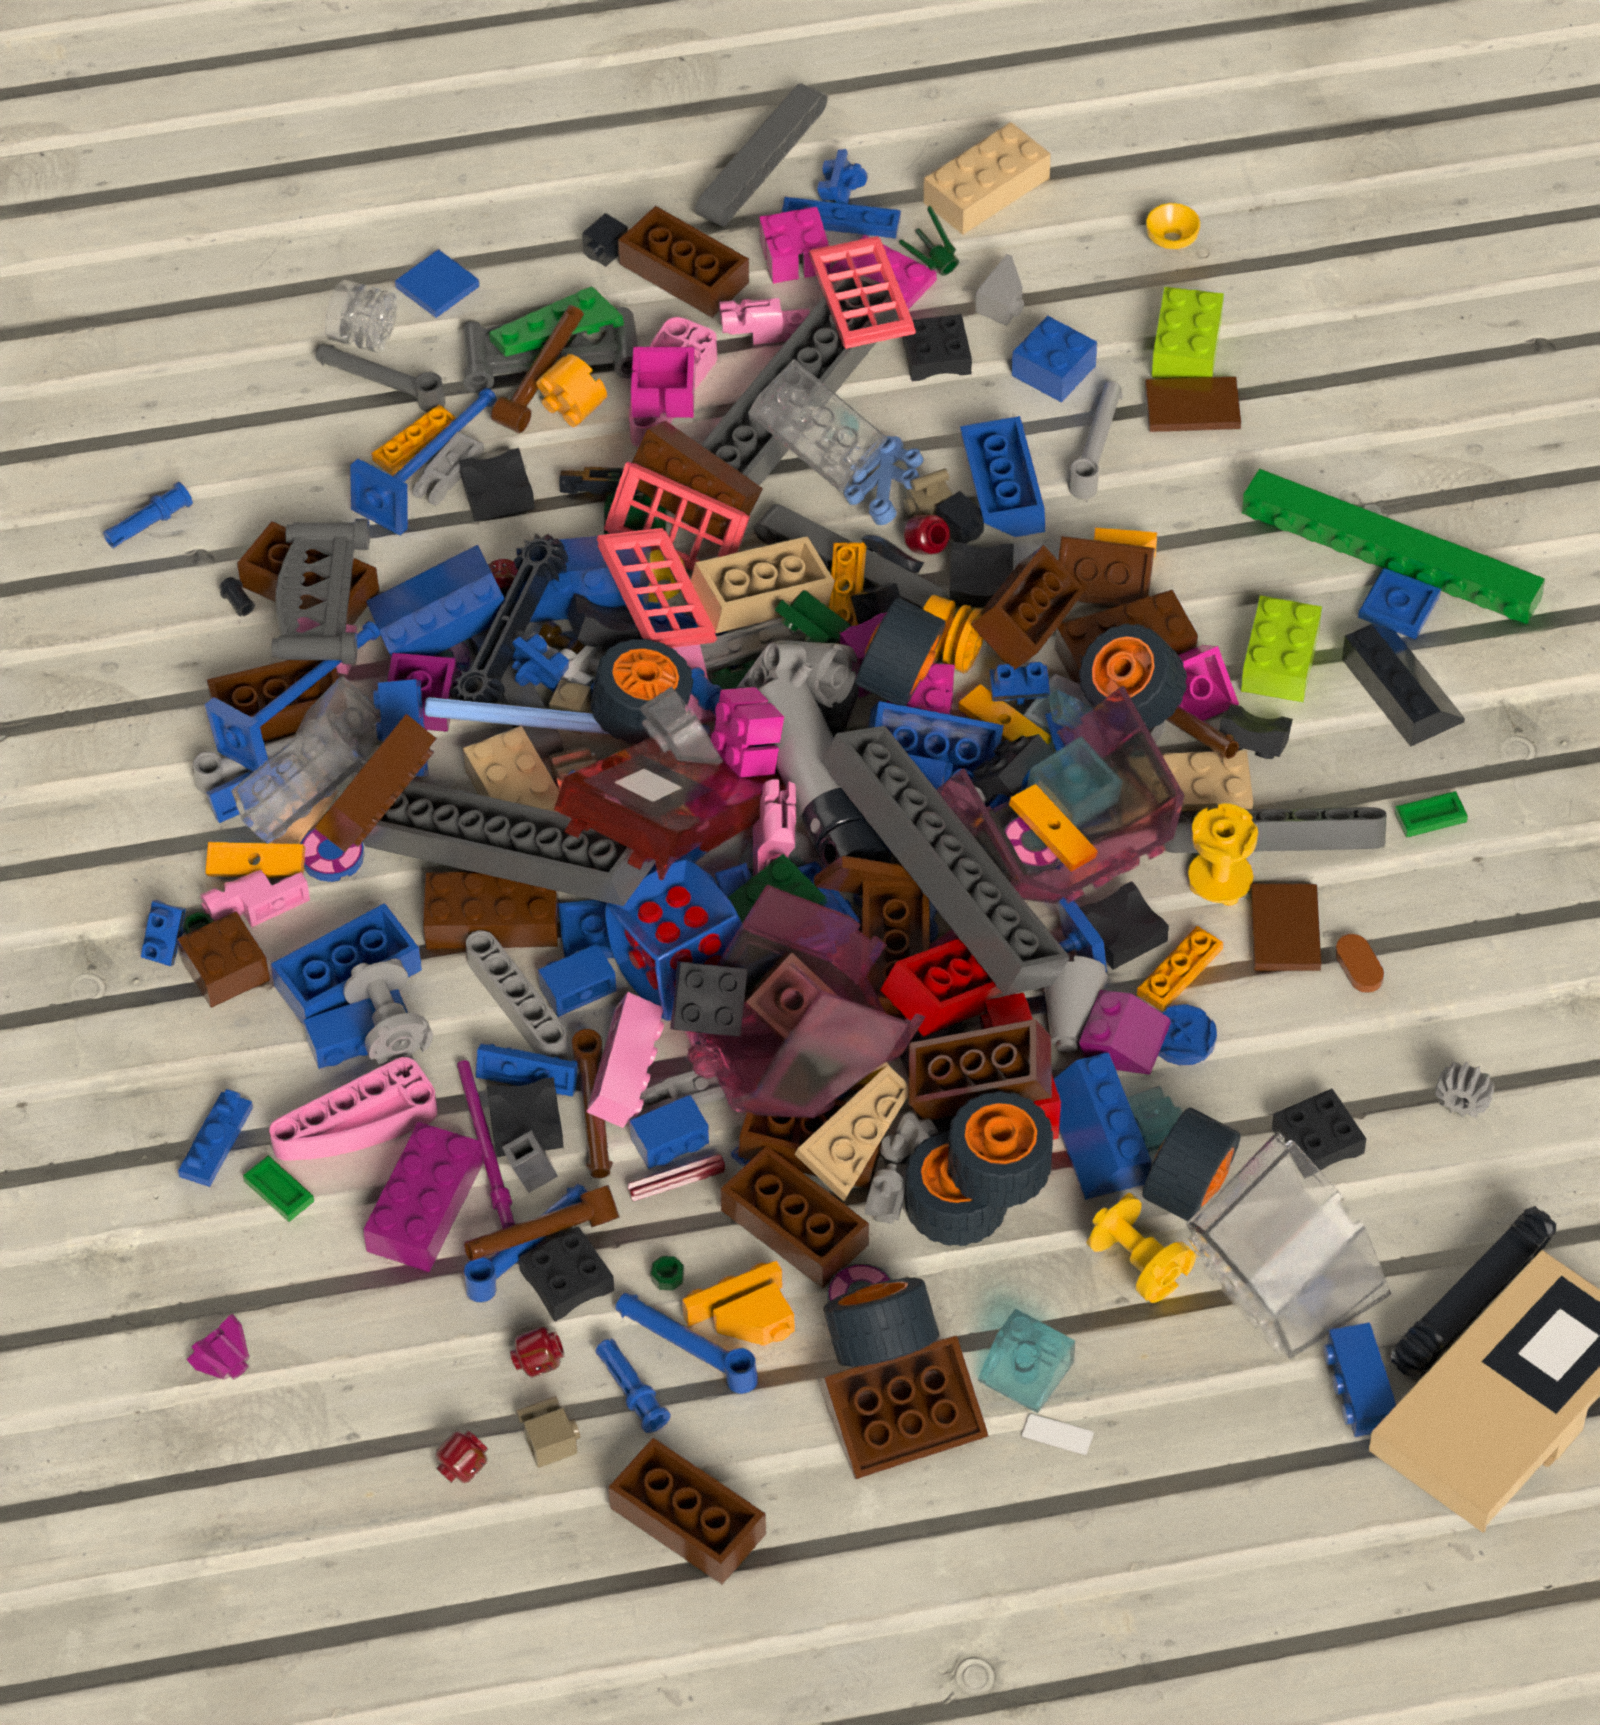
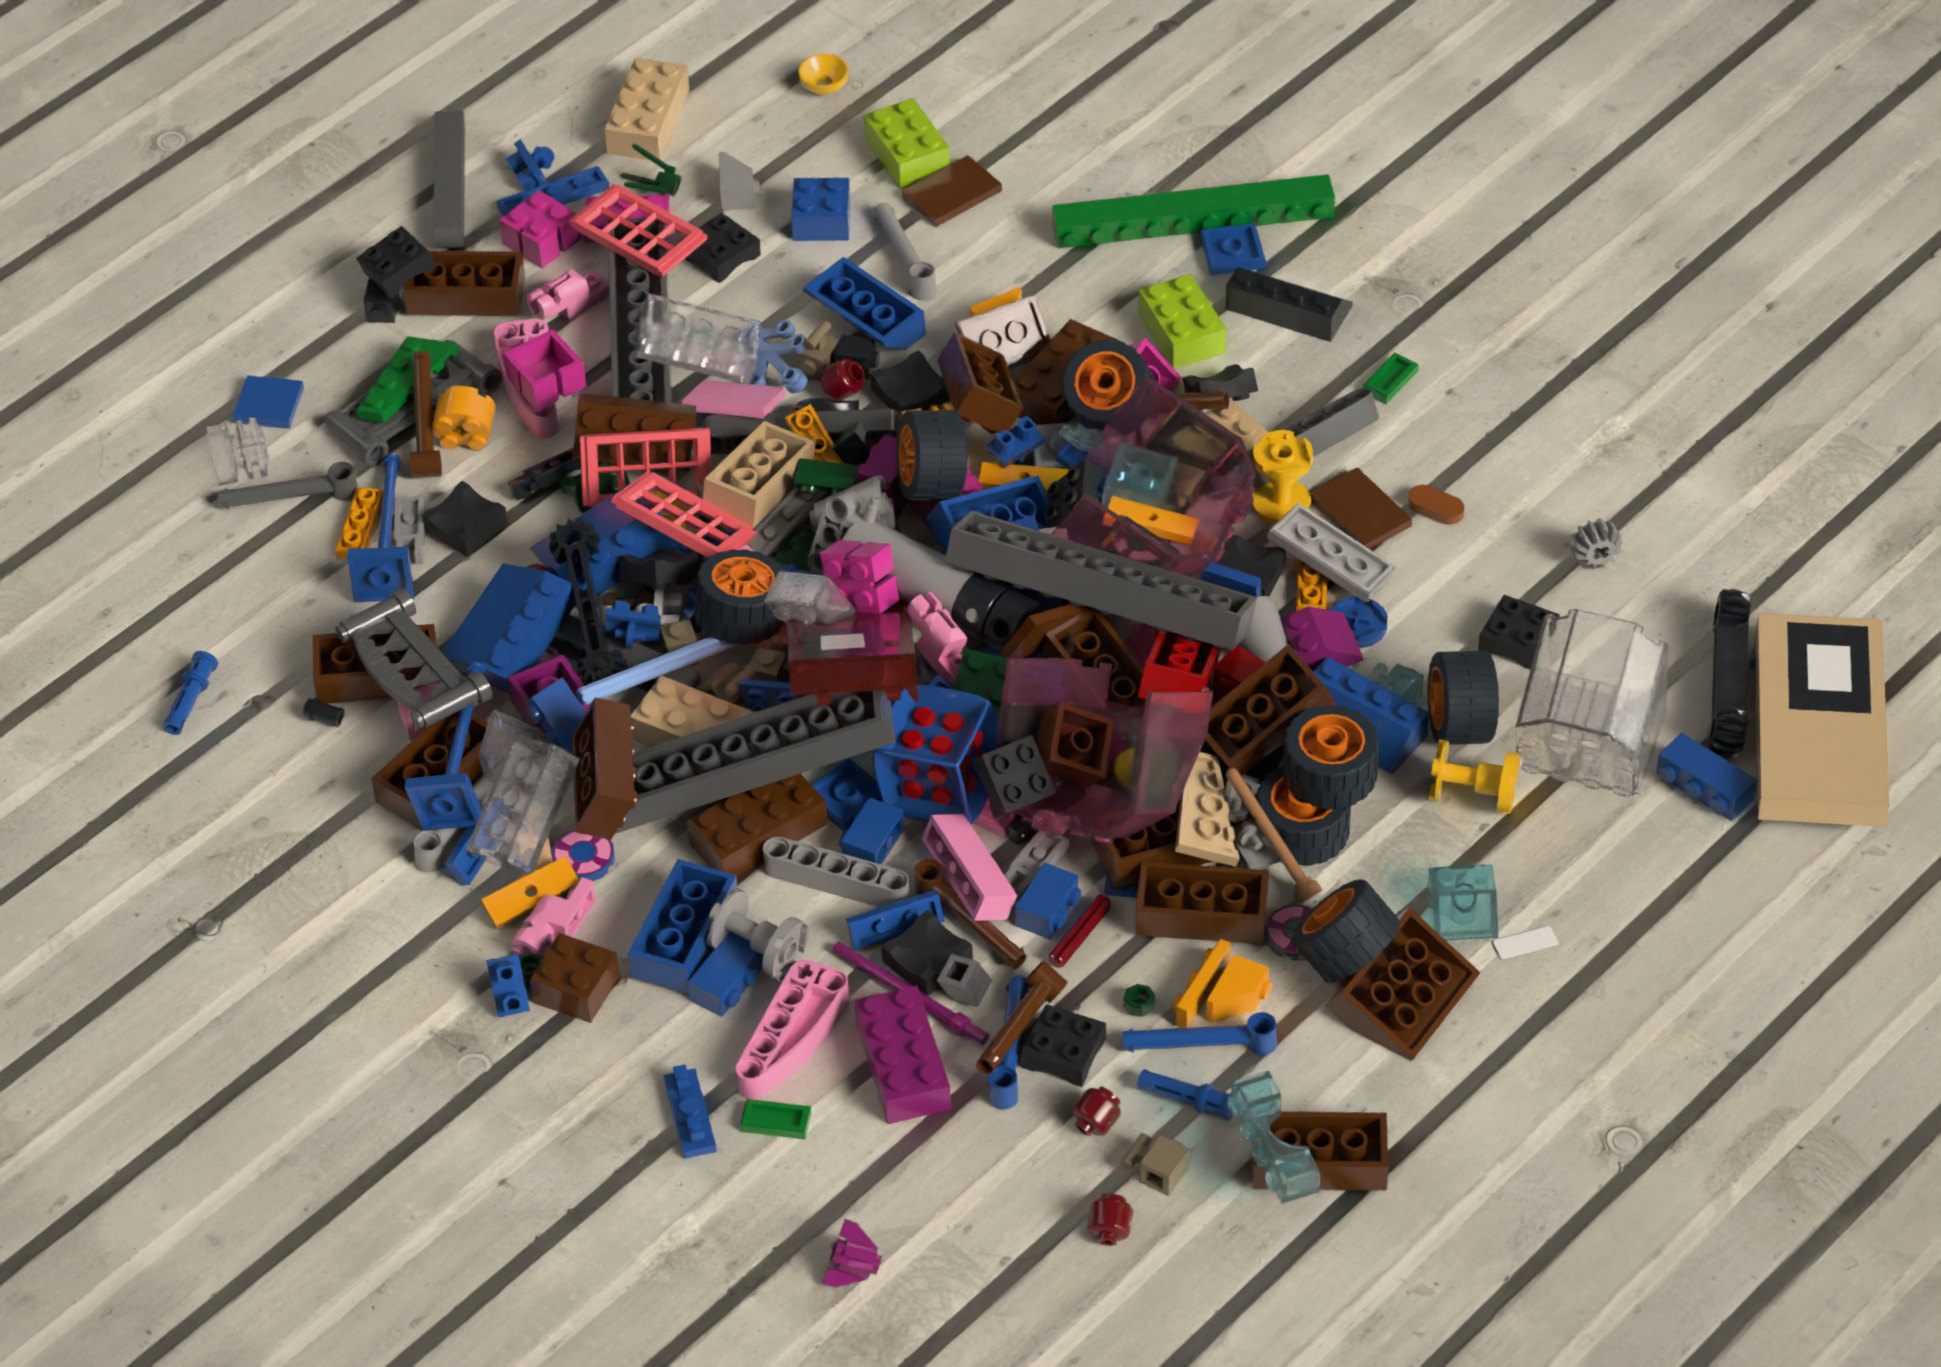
camera: 35 degrees left, 5 degrees down
(629, 209) = (395, 261): none -> black brick
(651, 1436) = (1288, 1168): none -> clear light blue arch
(815, 500) = (734, 398): none -> bright pink tile
(902, 1258) = (1305, 886): none -> medium nougat piece
(1210, 953) = (1331, 552): none -> light grey plate

